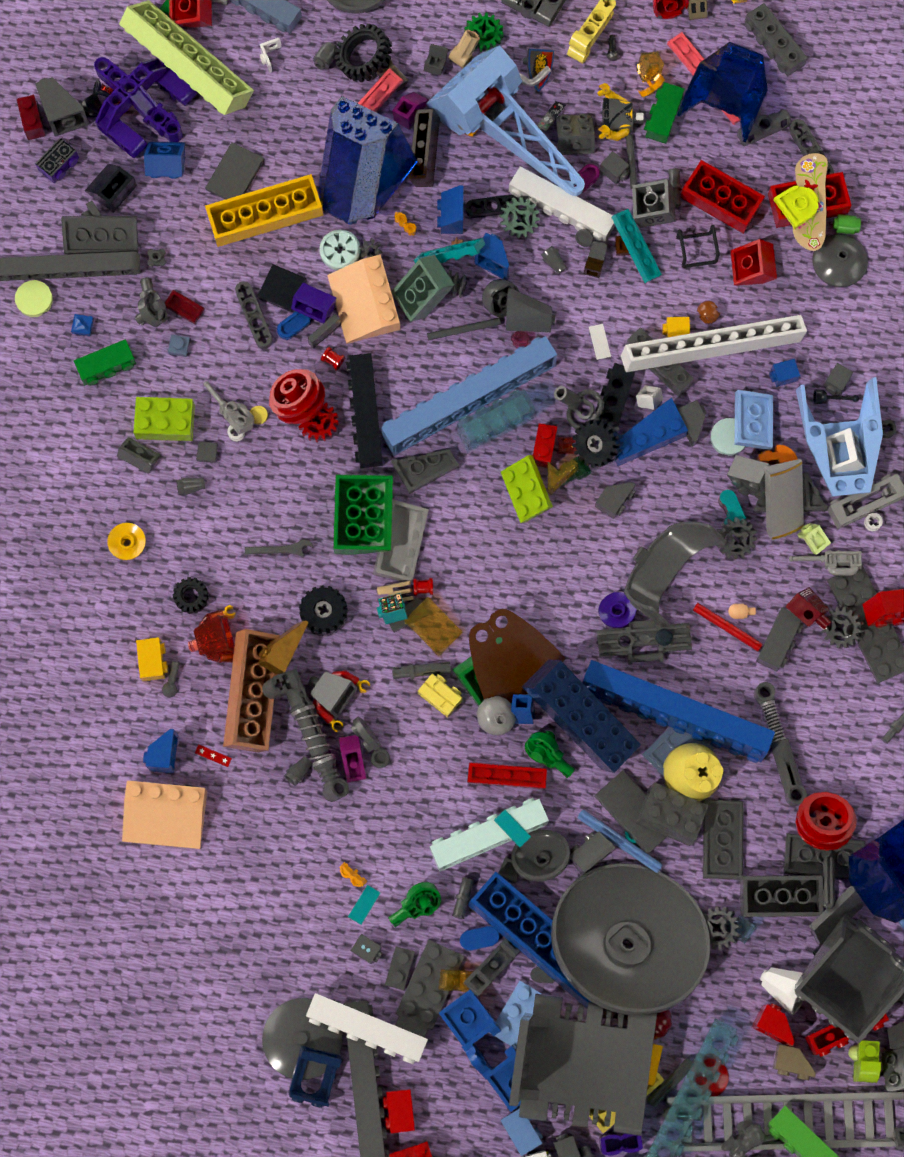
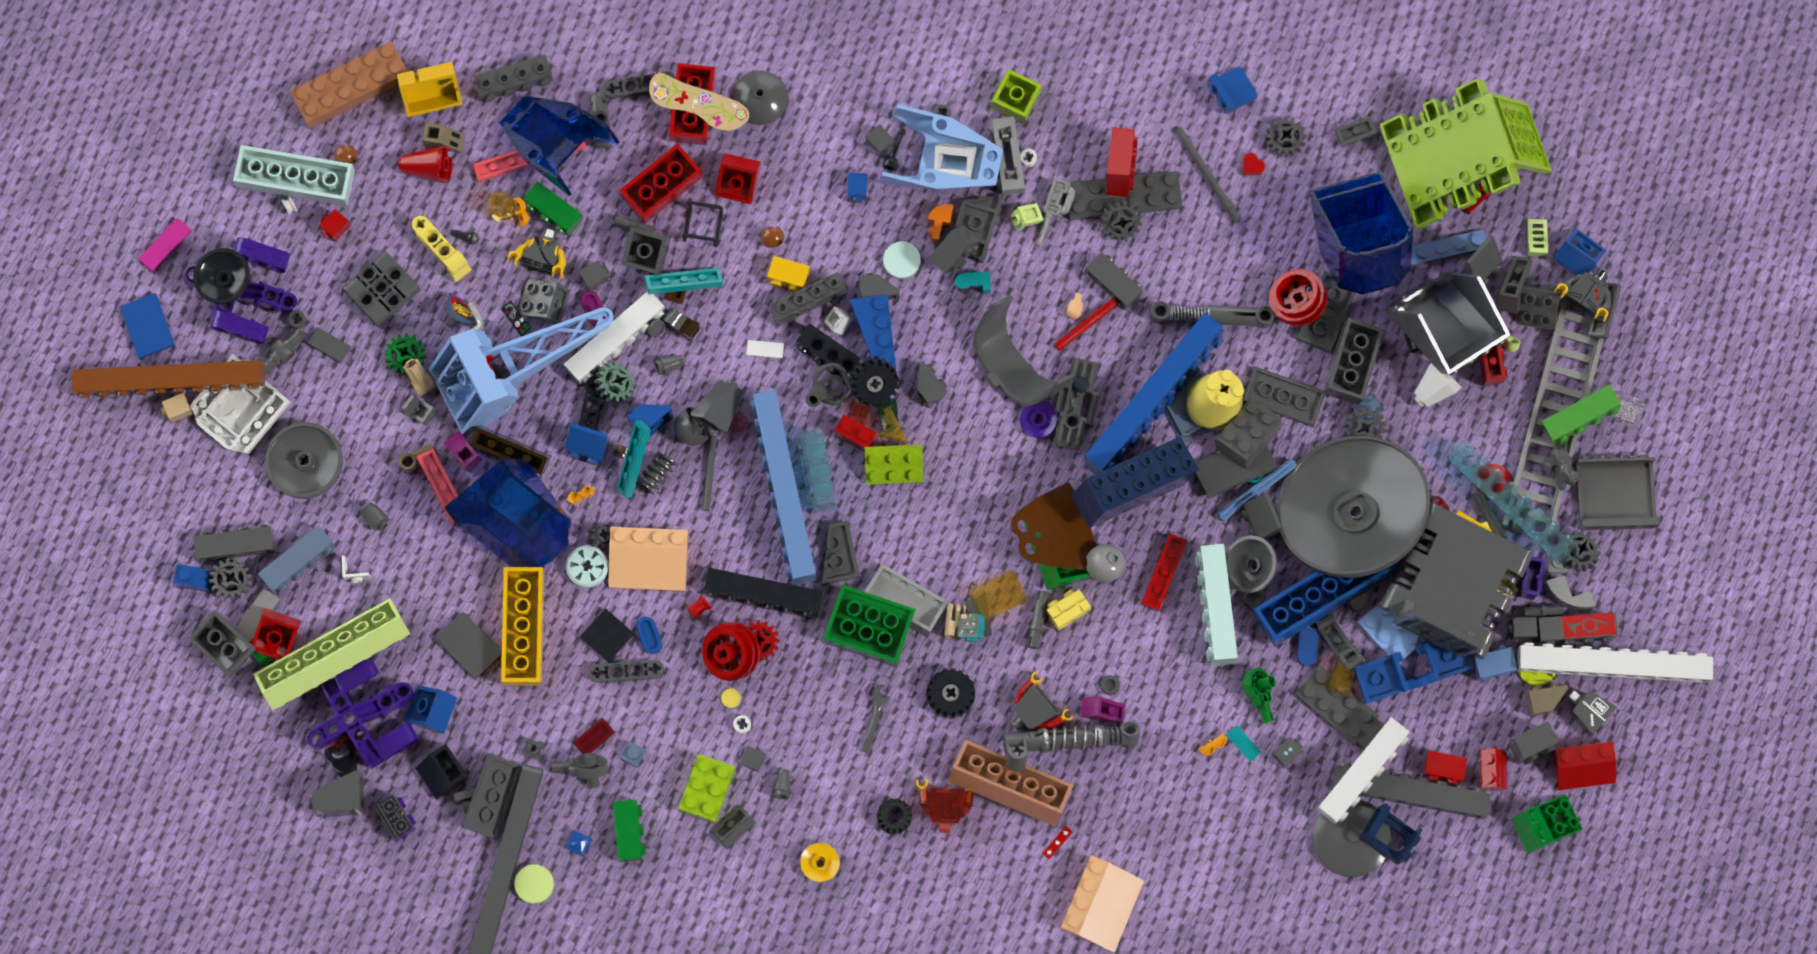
camera: 75 degrees left, 0 degrees up
(31, 117) = (338, 831): dark red brick -> none
(150, 659) = (946, 872): yellow brick -> none
(162, 753) = (1044, 886): blue slope -> none
(169, 689) = (979, 864): dark grey bar -> none
(231, 413) = (722, 722): light grey piece -> none
(279, 652) = (981, 741): pearl gold slope -> none
(297, 772) = (1099, 765): dark grey cone -> none
(313, 303) = (636, 608): dark purple brick -> none
(323, 331) = (667, 607): dark grey tile -> none
(370, 740) = (1081, 691): dark grey tile -> none
(378, 60) = (374, 492): black tyre -> none
(399, 968) = (1313, 728): dark grey plate -> none
(422, 288) = (662, 496): sand green brick -> none
(423, 586) = (957, 592): red bush -> none
(463, 898) = (1266, 649): dark grey pin -> none
(512, 828) = (1221, 579): teal sticker -> none
(523, 709) = (1107, 535): blue brick -> none
(547, 752) = (1161, 525): green pin -> none
(631, 160) = (591, 257): dark grey bar -> none
(713, 343) = (811, 241): white brick -> none
(742, 532) = (1005, 277): dark grey gear -> none
(753, 419) = (894, 231): light blue plate -> none
(774, 1024) = (1466, 406): red slope -> none
(784, 499) = (986, 229): light grey slope -> none
(792, 1060) = (1502, 403): dark tan slope -> none
(798, 205) = (698, 115): neon yellow tile -> none
(809, 608) = (1096, 243): dark red torso -> none
(828, 882) = (1357, 314): dark grey axle -> none
(847, 224) = (727, 78): bright green brick -> none
(847, 903) = (1389, 326): dark grey tile -> none
(867, 1066) = (1526, 337): lime brick -> none

